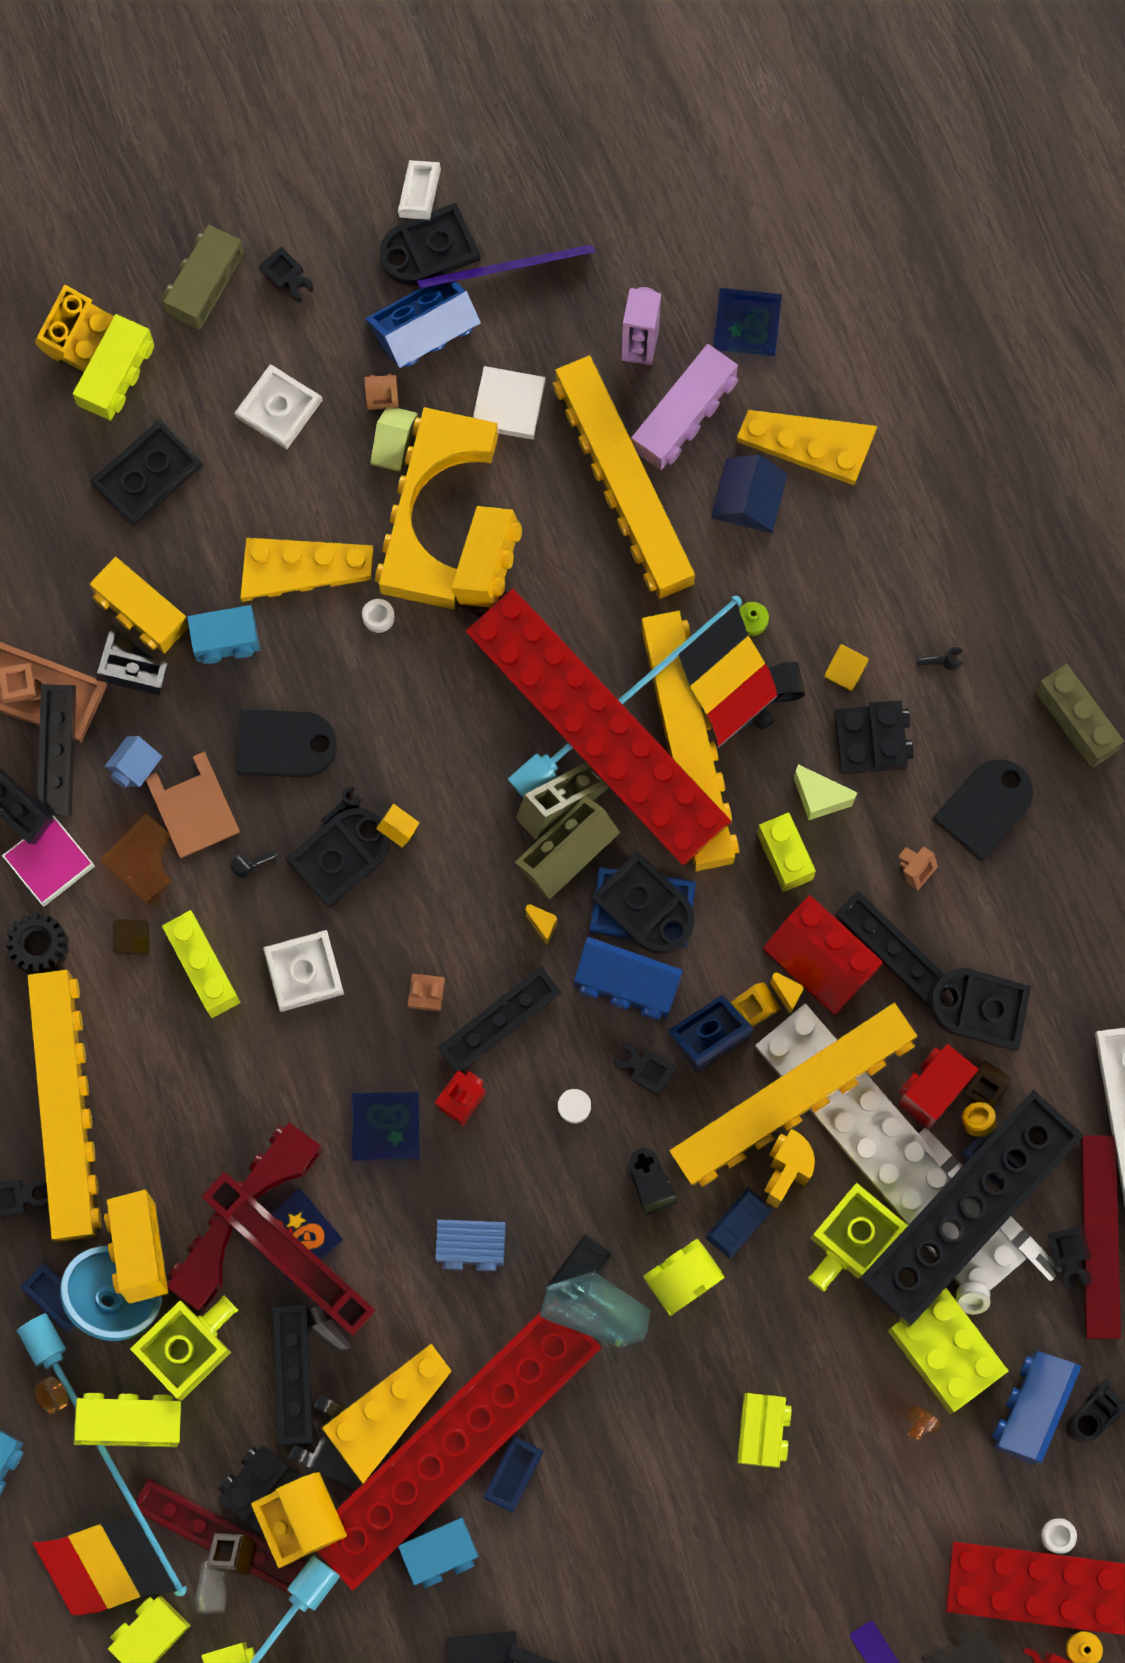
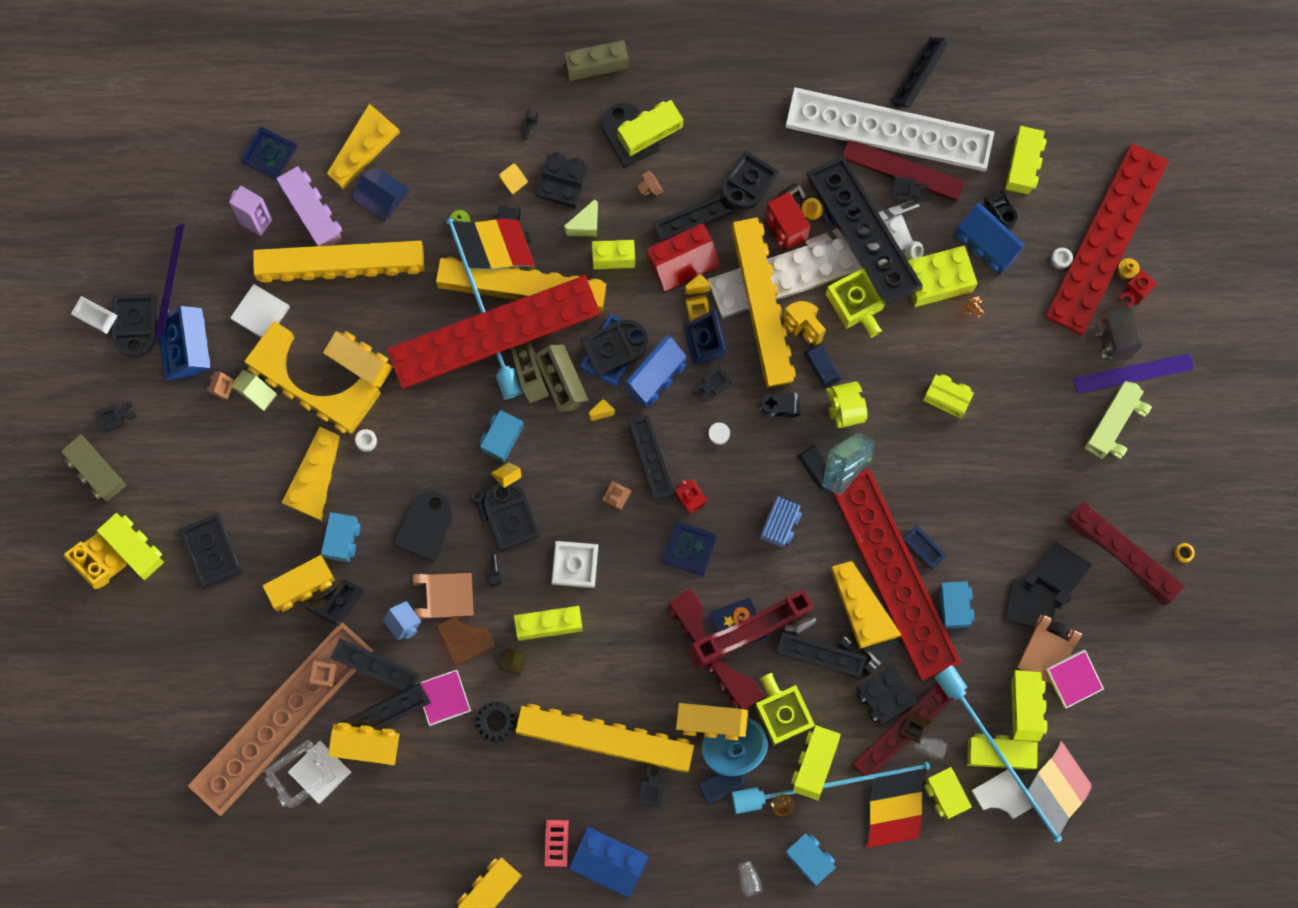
camera: 75 degrees left, 0 degrees up
(278, 406) = (201, 453): white tile -> none
(298, 1519) = (911, 678): yellow brick -> none
(451, 796) = (501, 435): none -> dark azure brick
(1004, 830) = (650, 127): none -> neon yellow brick

